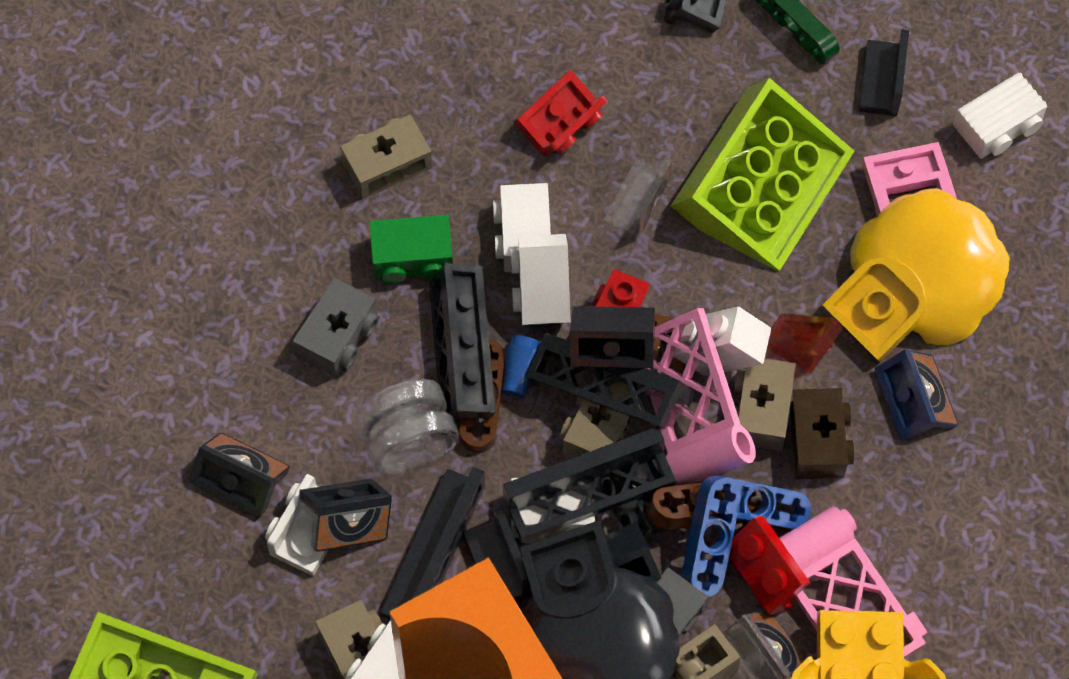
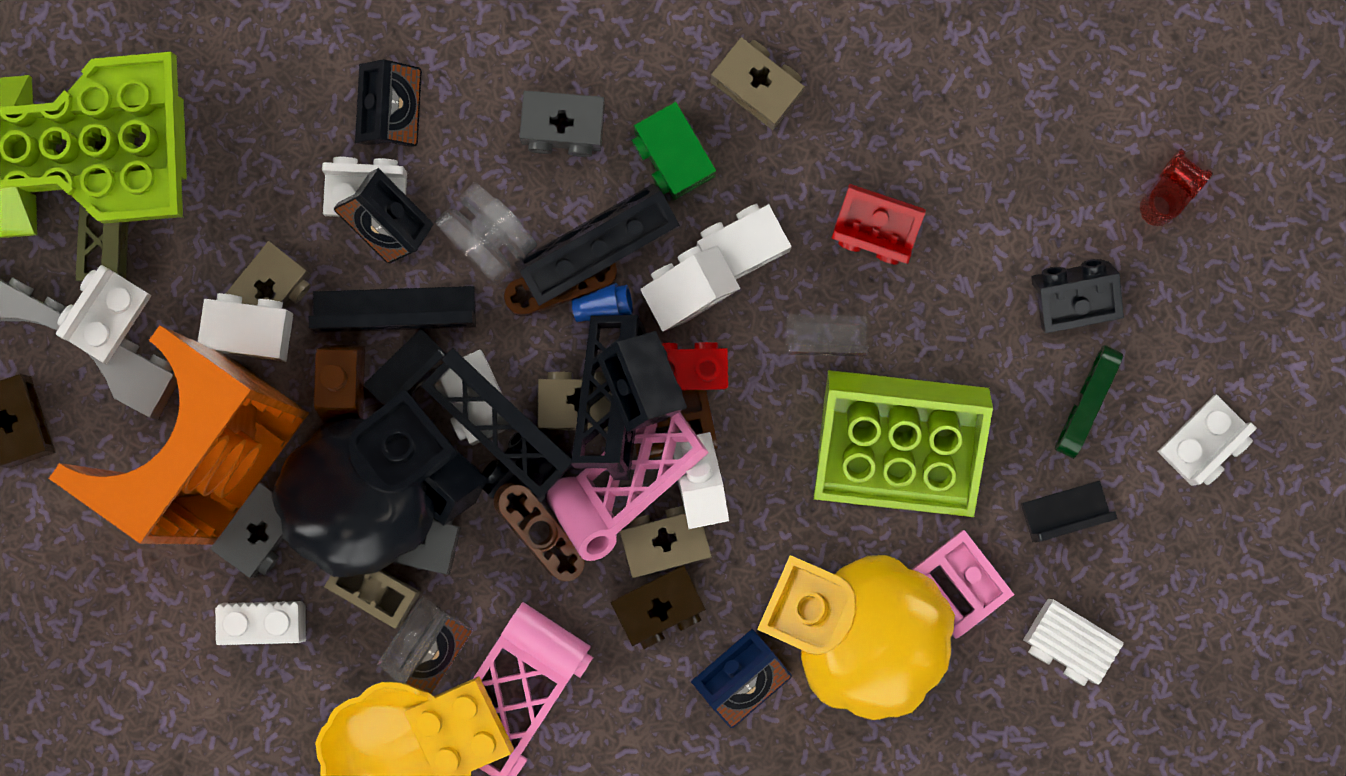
camera: 60 degrees right, 20 degrees up
(731, 508) = (536, 559): blue beam -> none
(767, 566) = (500, 613): red bracket -> none
(803, 339) = (746, 550): clear red slope -> none

